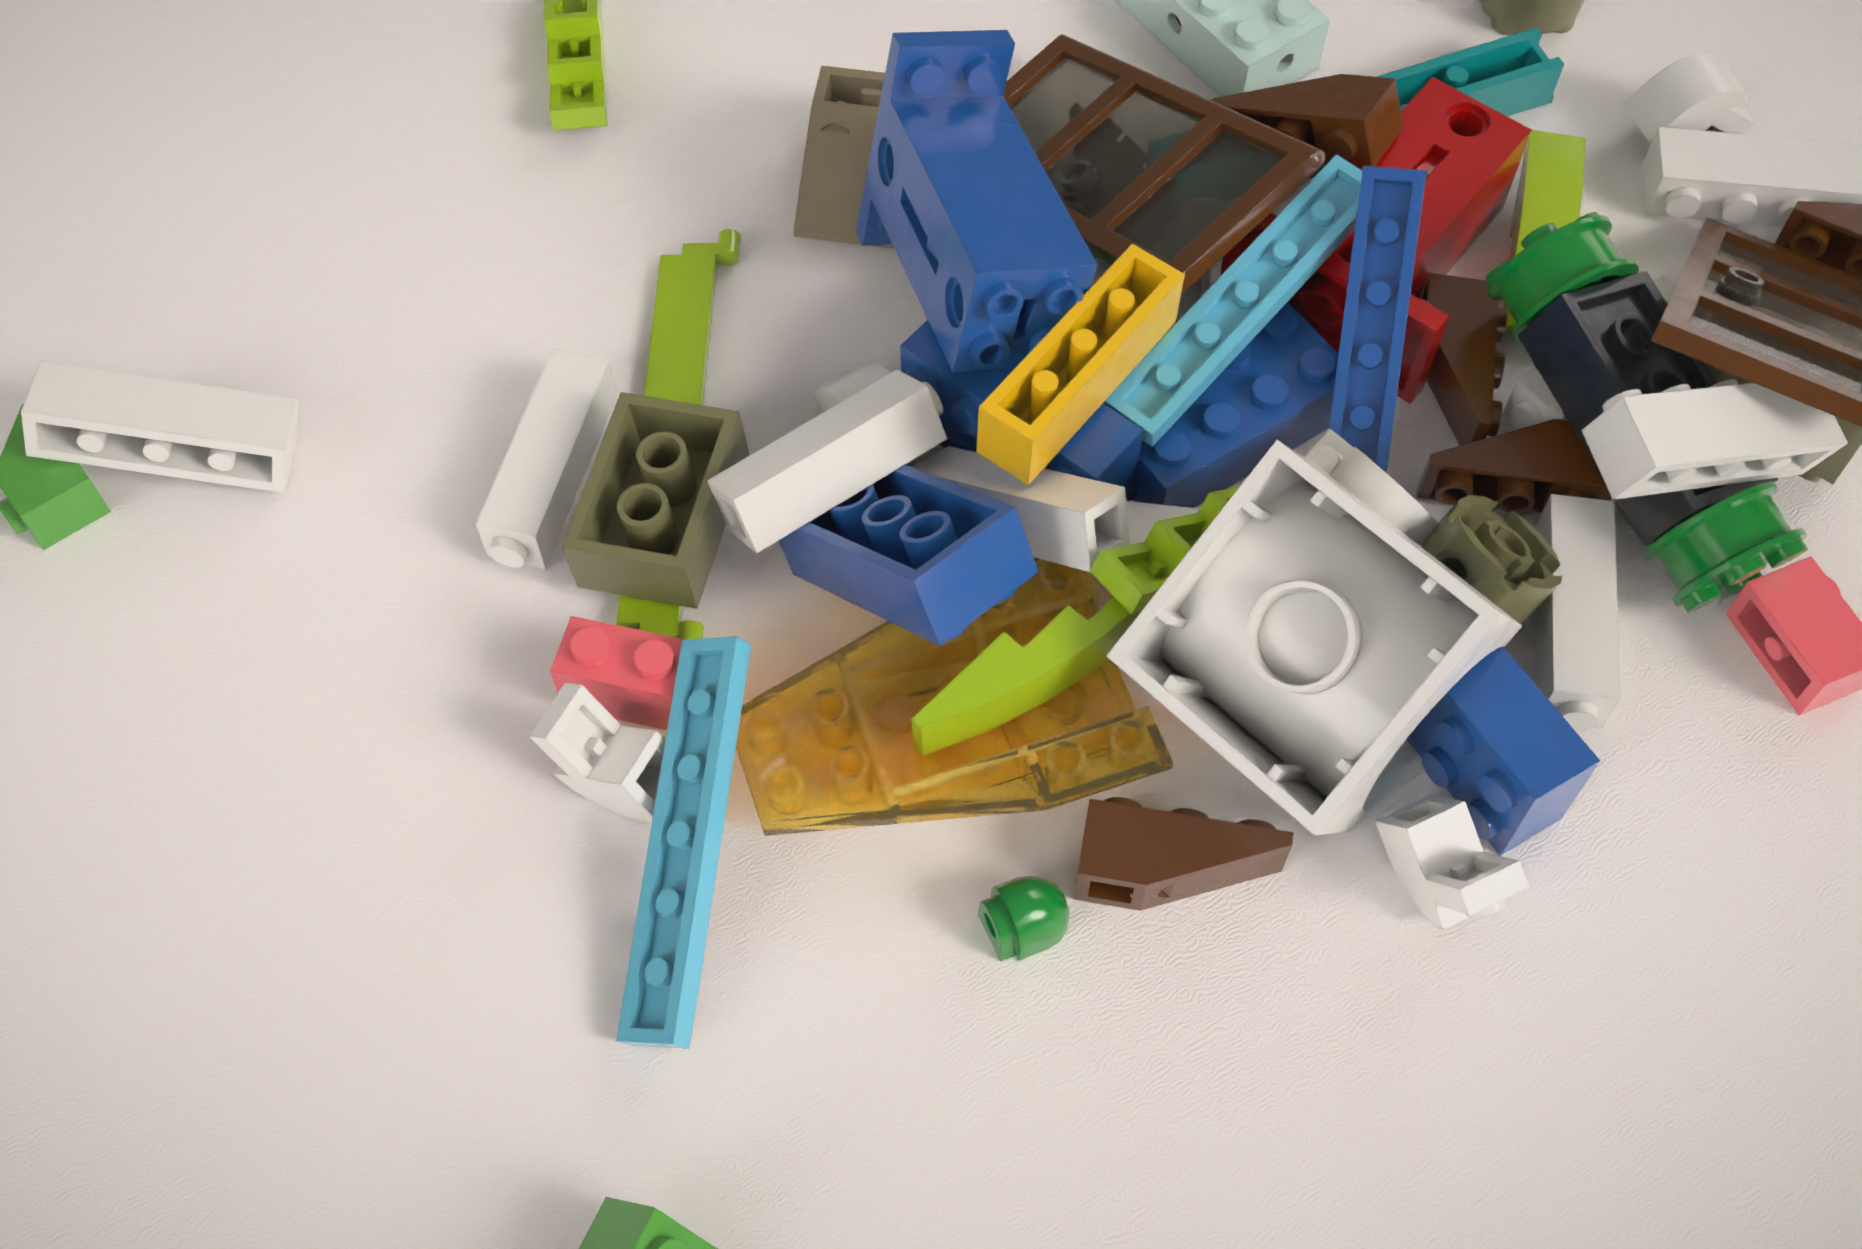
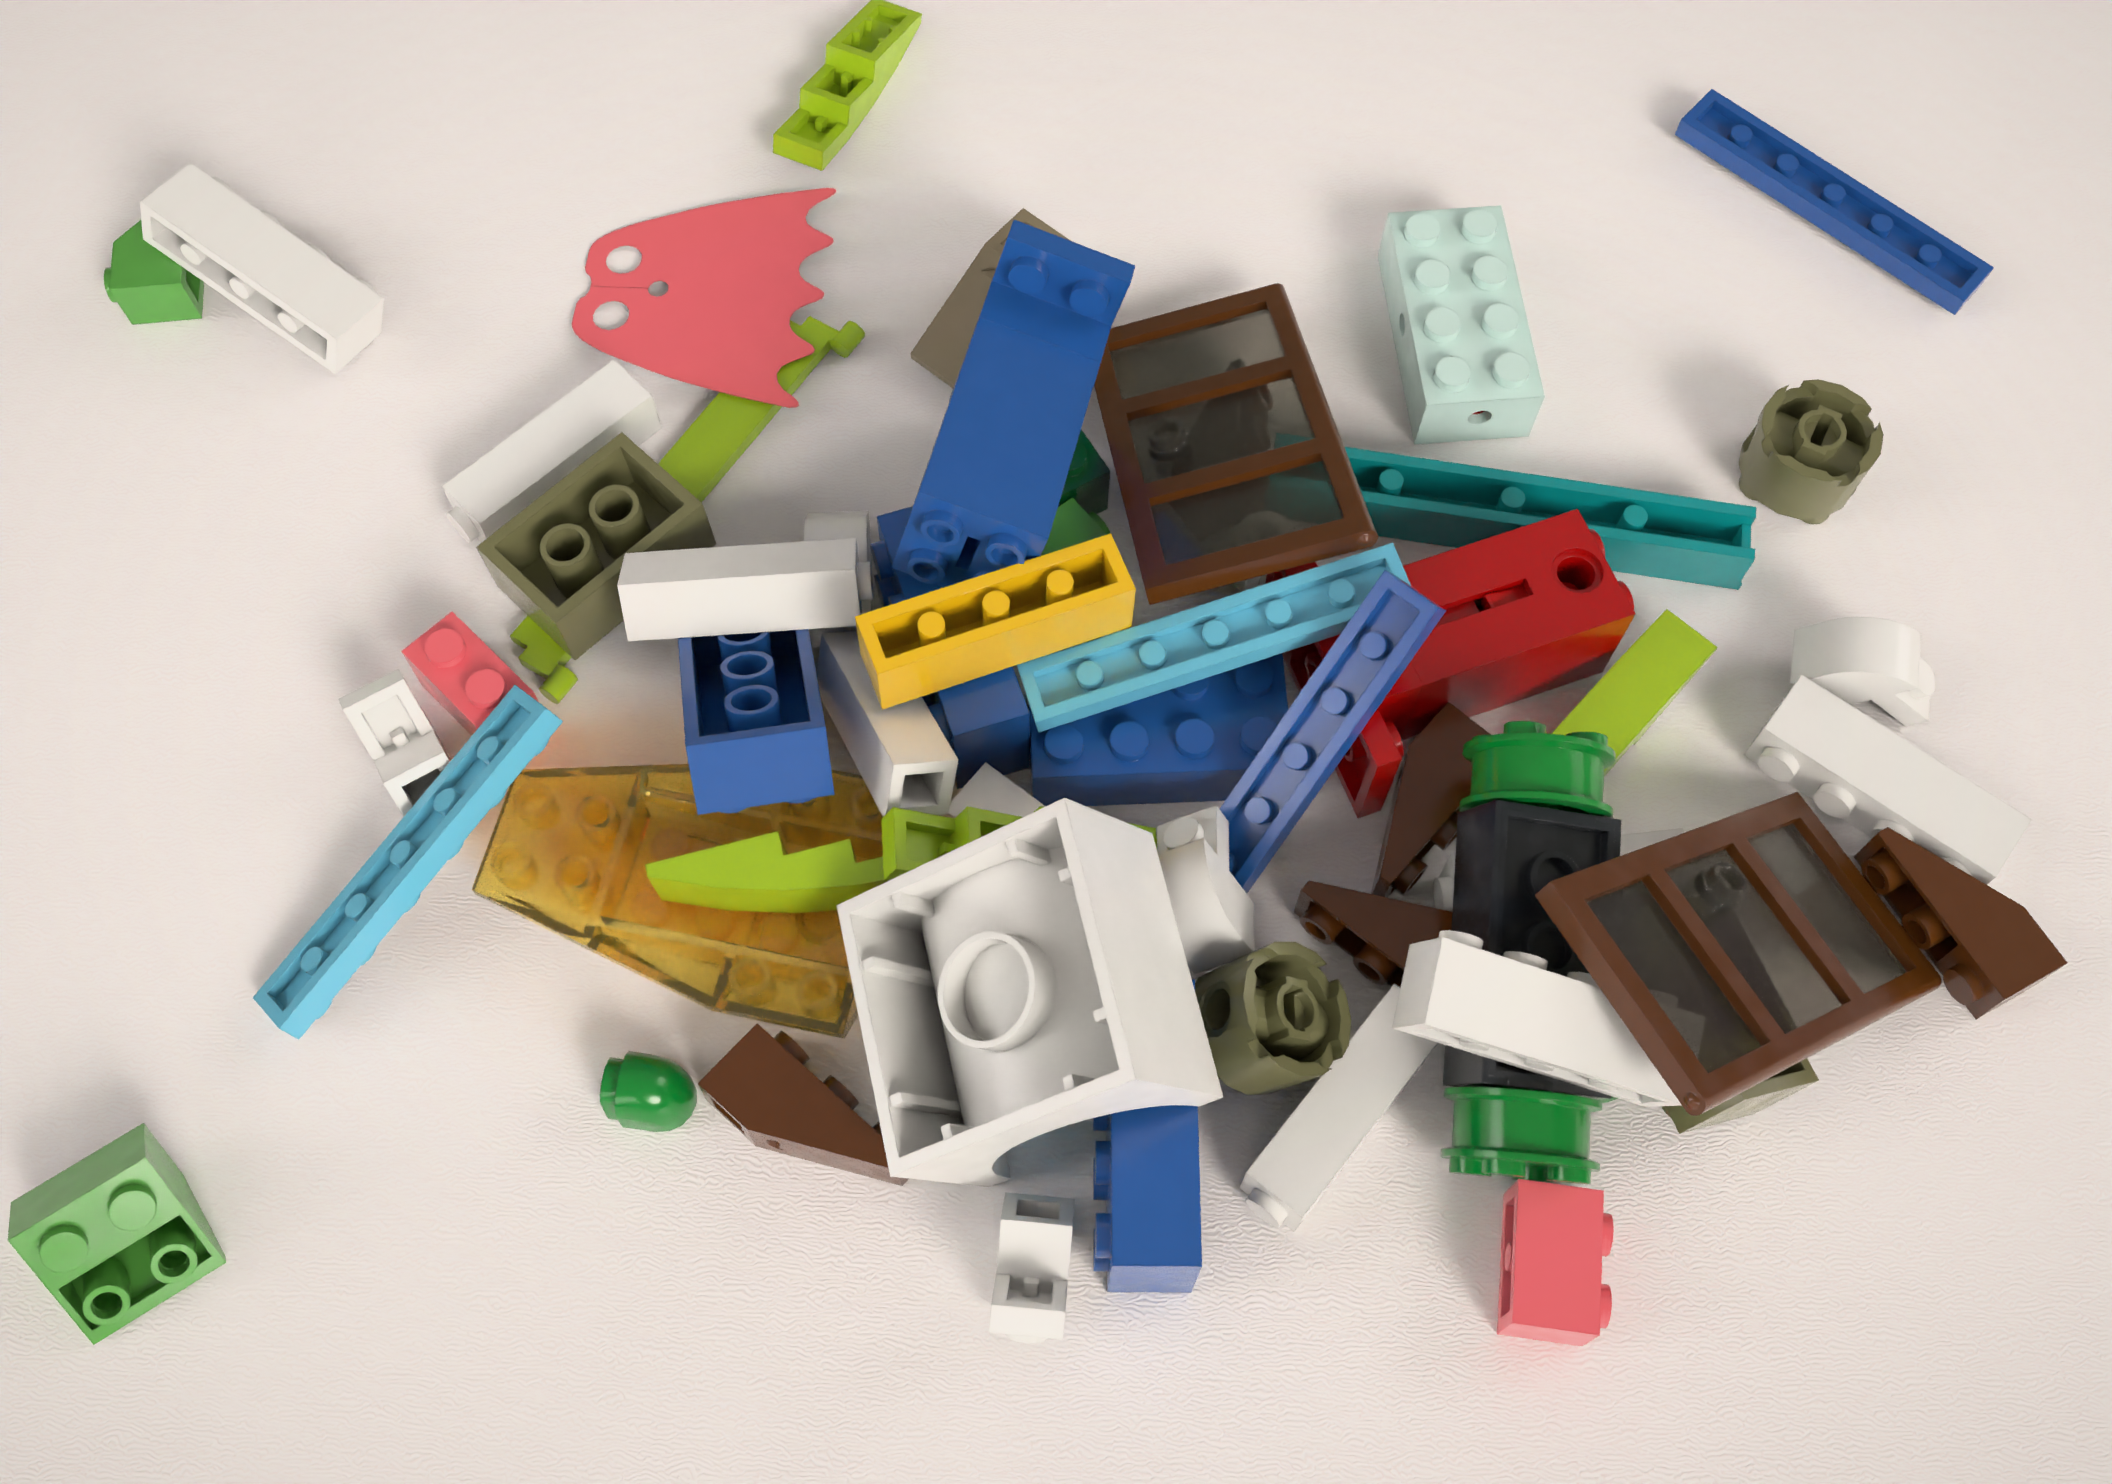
camera: 30 degrees right, 5 degrees up
(597, 265) = (727, 294): none -> coral piece
(1334, 113) = (1426, 498): reddish brown slope -> none

